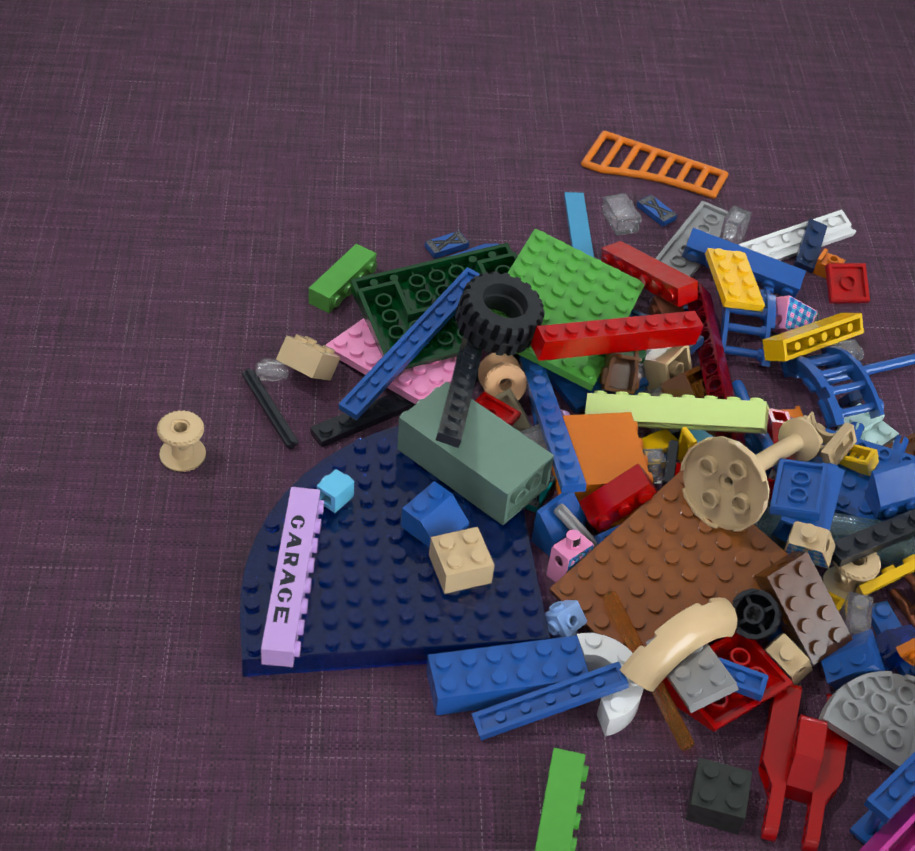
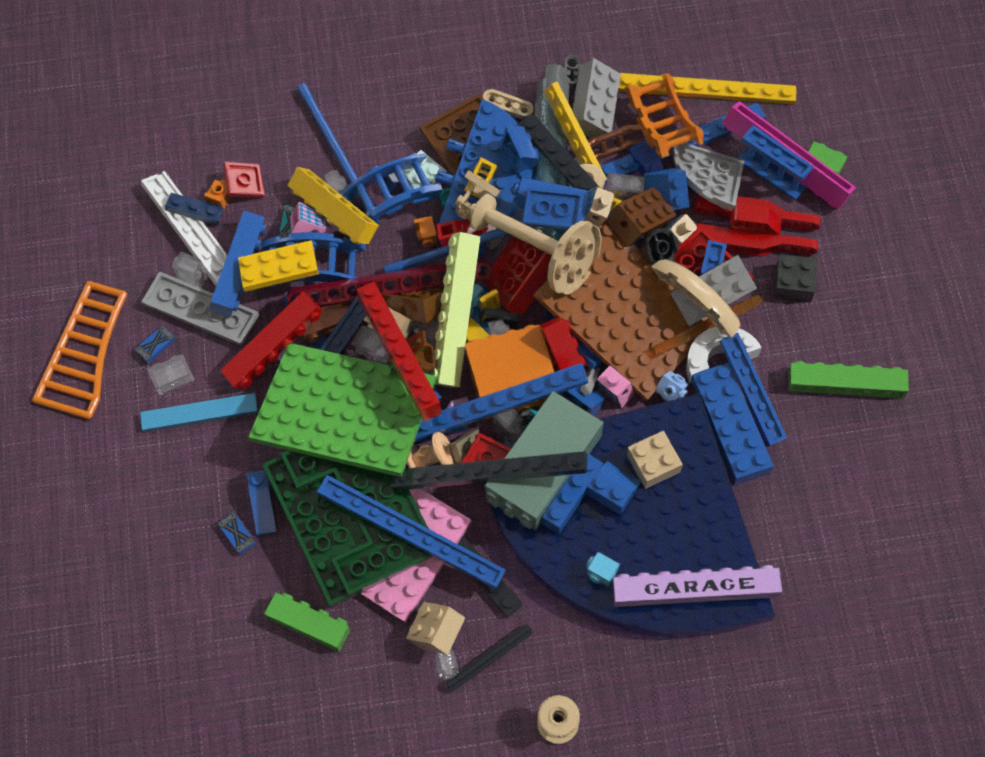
camera: 90 degrees left, 20 degrees up
(422, 469) = (570, 497): none -> blue brick
(493, 331) = (398, 425): black tyre -> none

